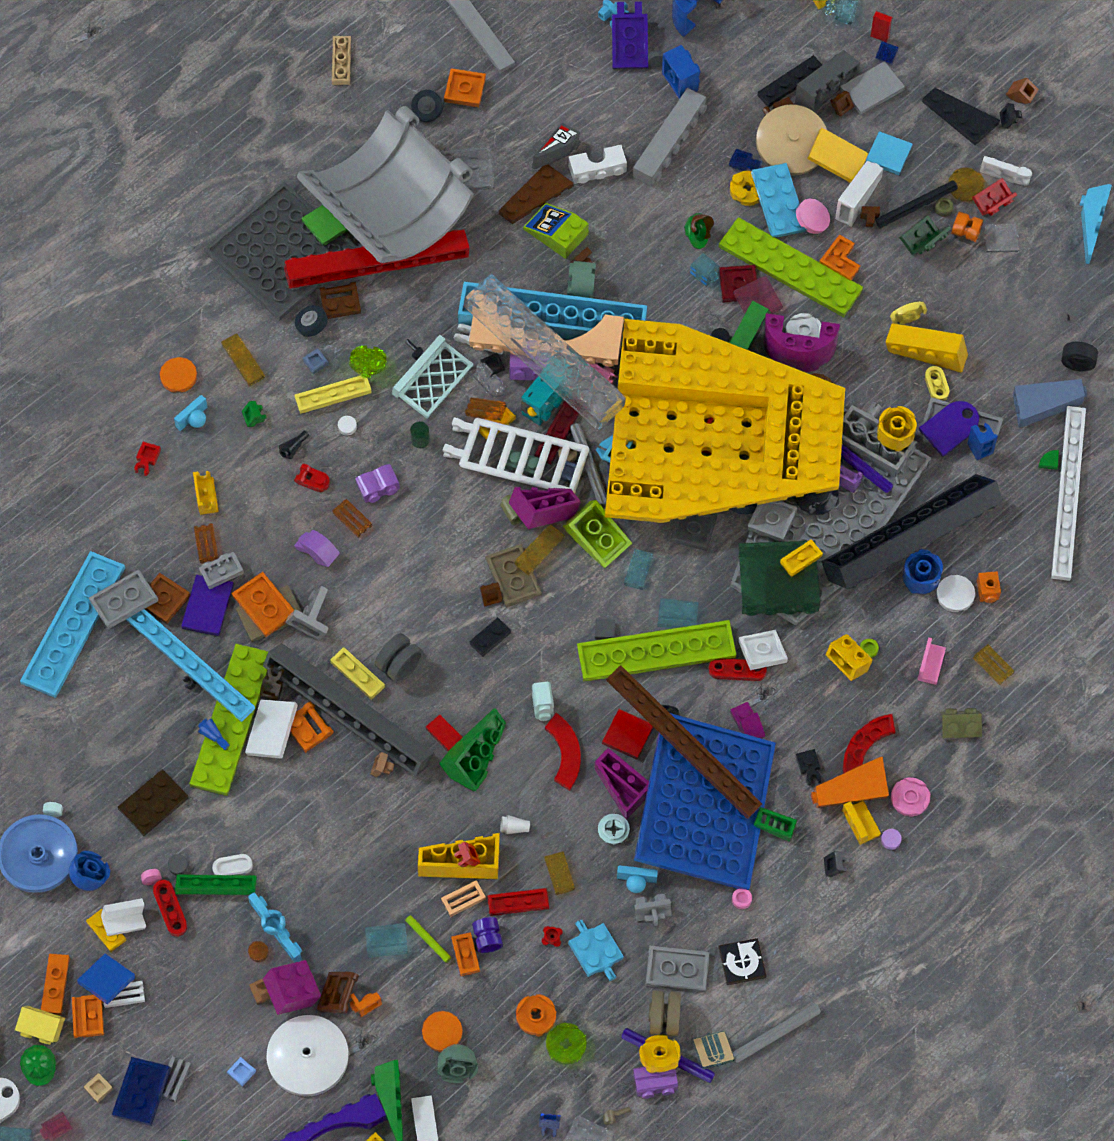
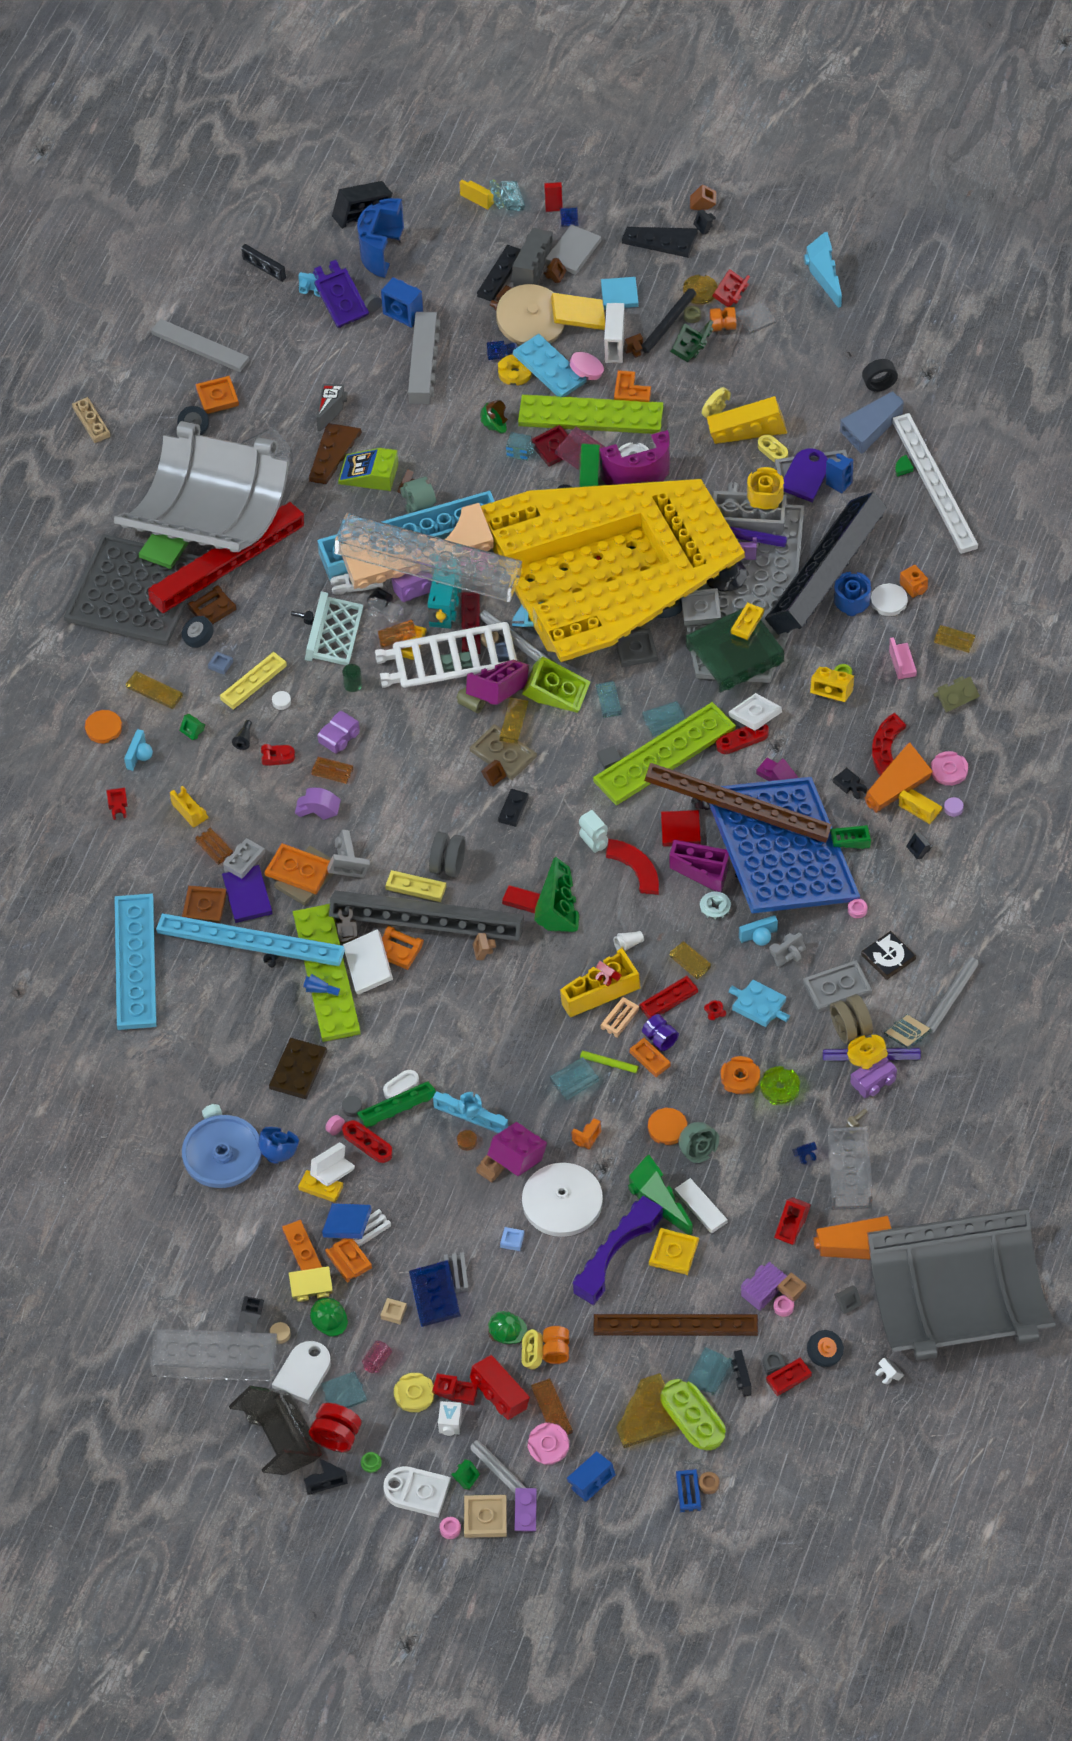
camera: 25 degrees left, 10 degrees down
(123, 599) = (170, 919): light grey tile -> none
(333, 989) = (553, 1135): reddish brown plate -> none
(374, 363) = (269, 641): clear neon green plate -> none
(584, 170) = (364, 414): white arch -> none
(1006, 171) = (721, 265): white hinge -> none

